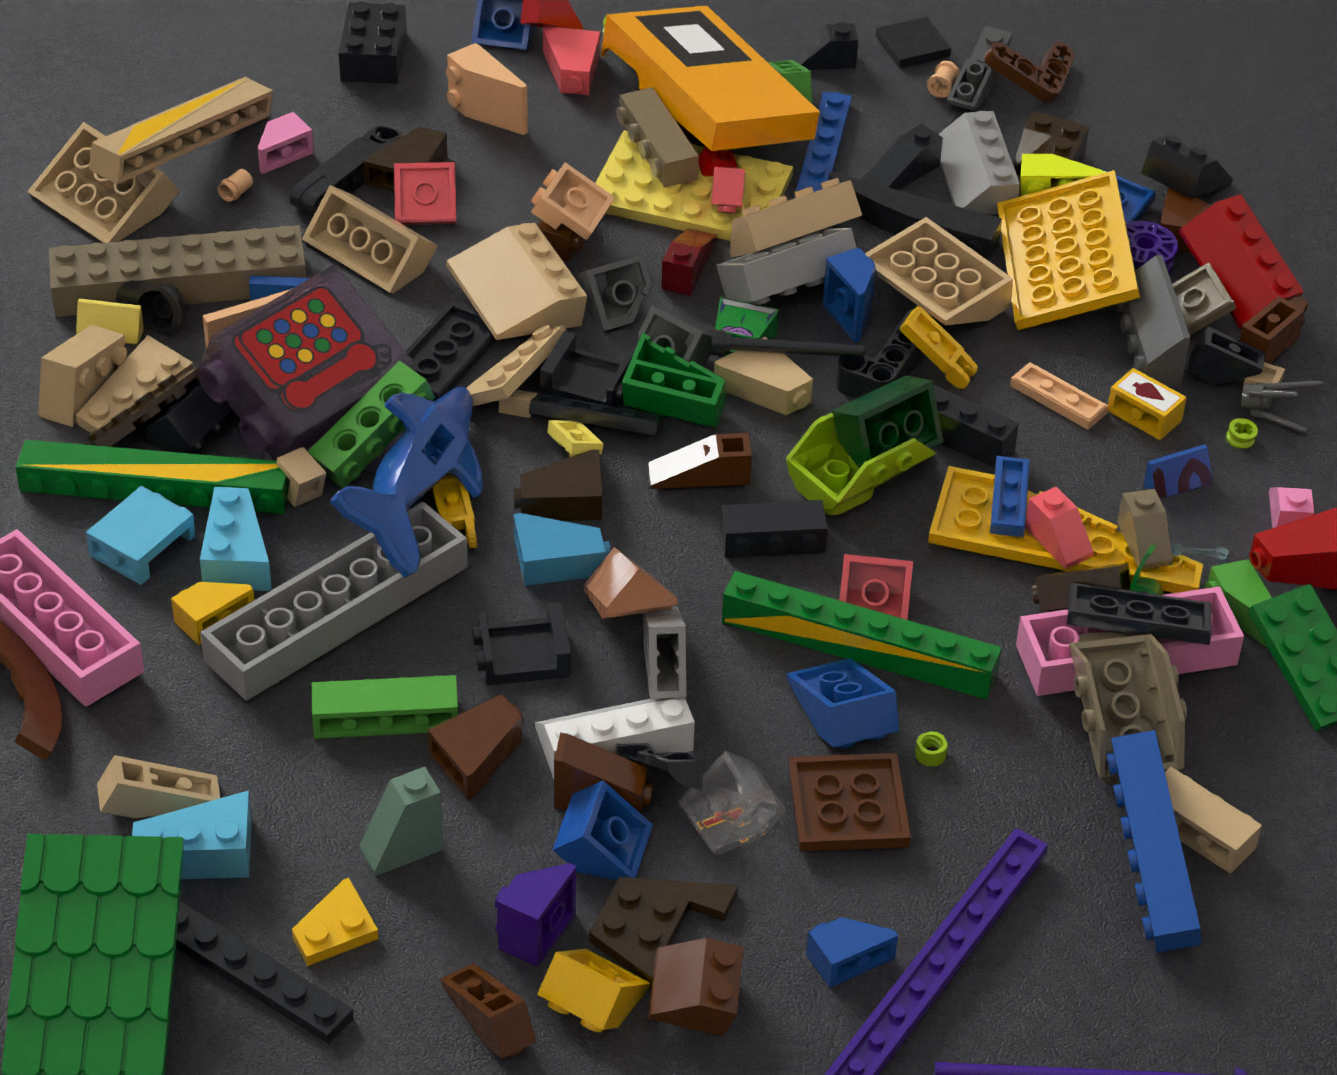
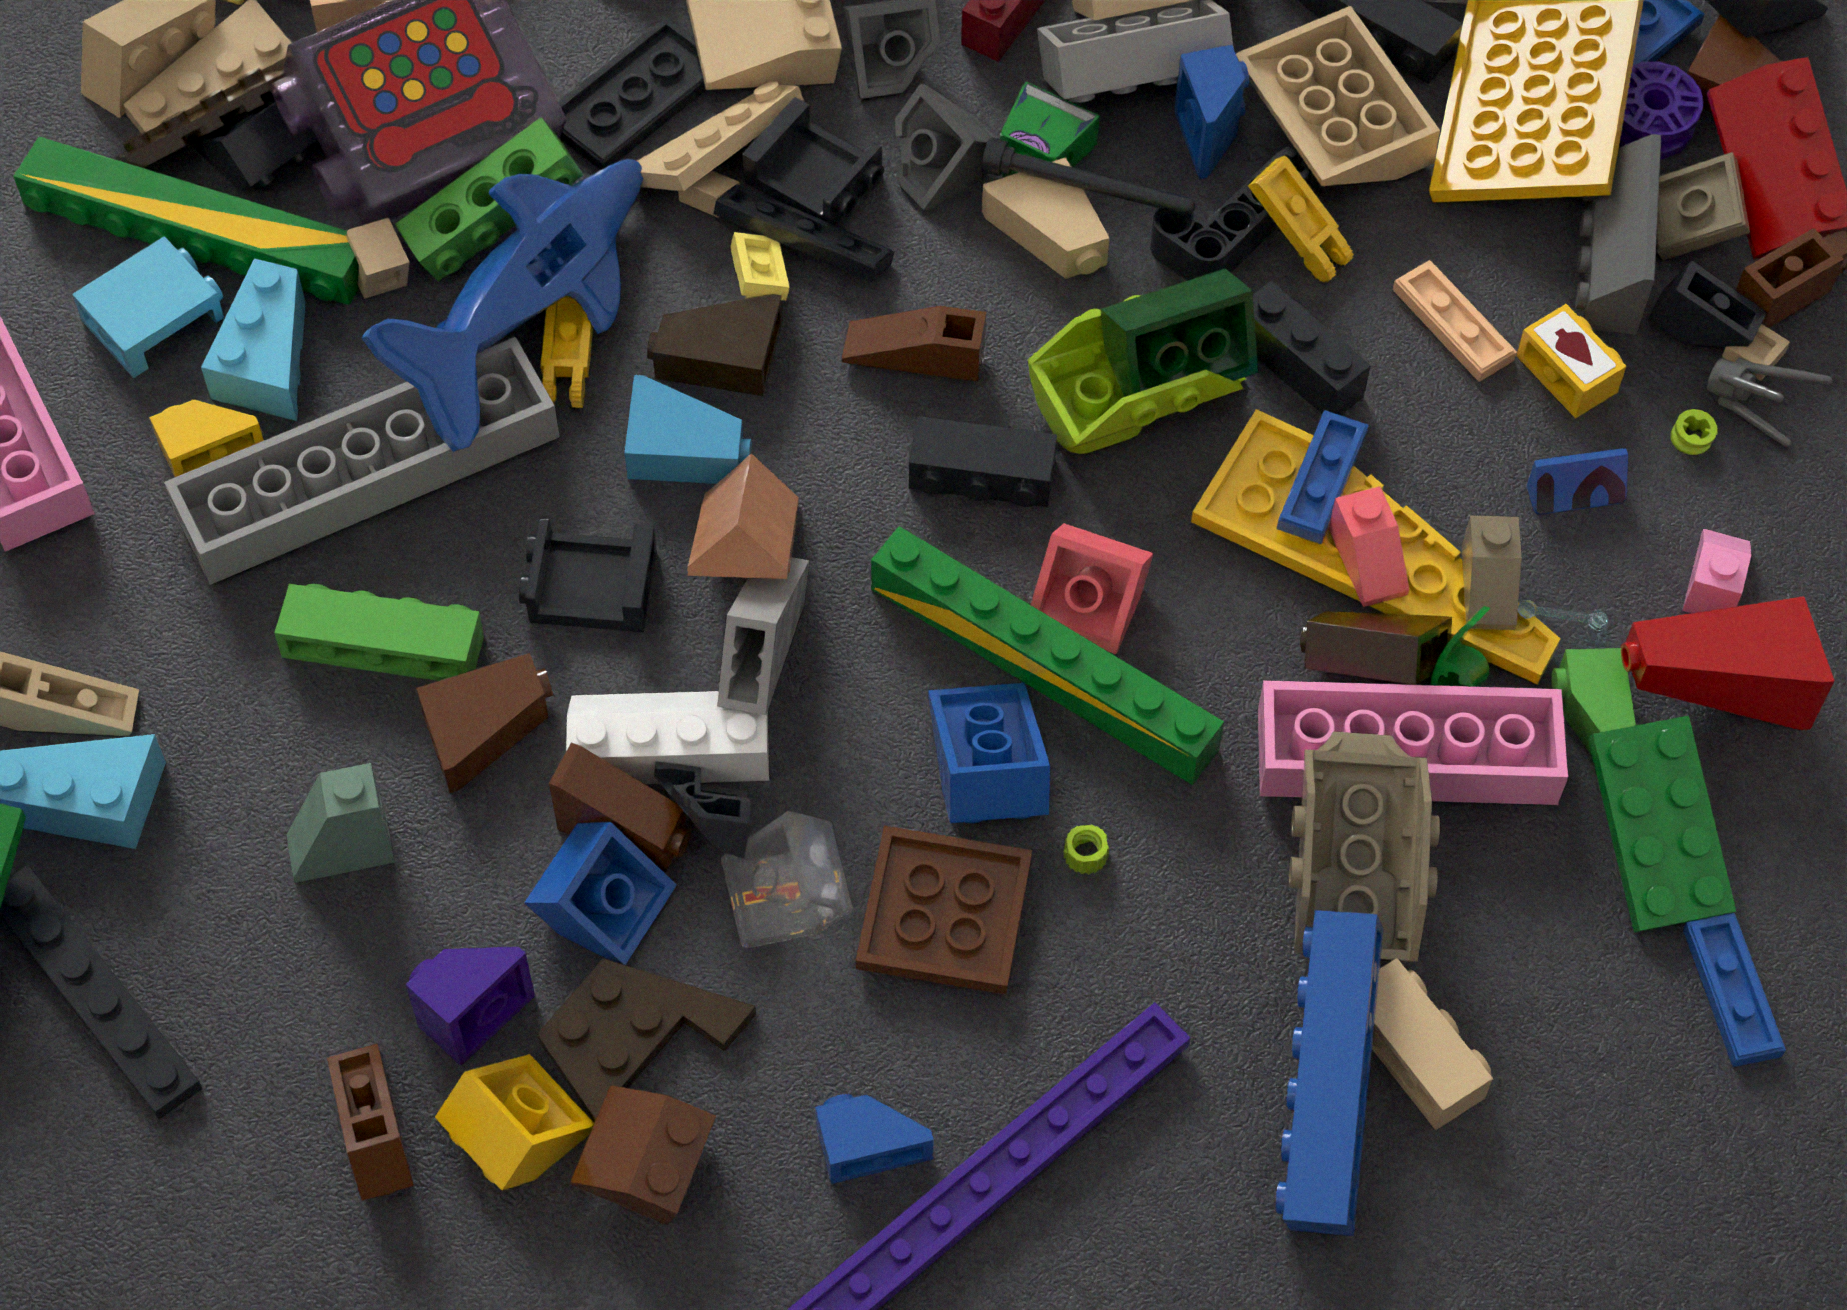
camera: 15 degrees right, 15 degrees up
(334, 925) = (217, 947): yellow wing -> none
(671, 386) = (913, 210): green wedge -> none
(1139, 613) = (1425, 717): black tile -> none

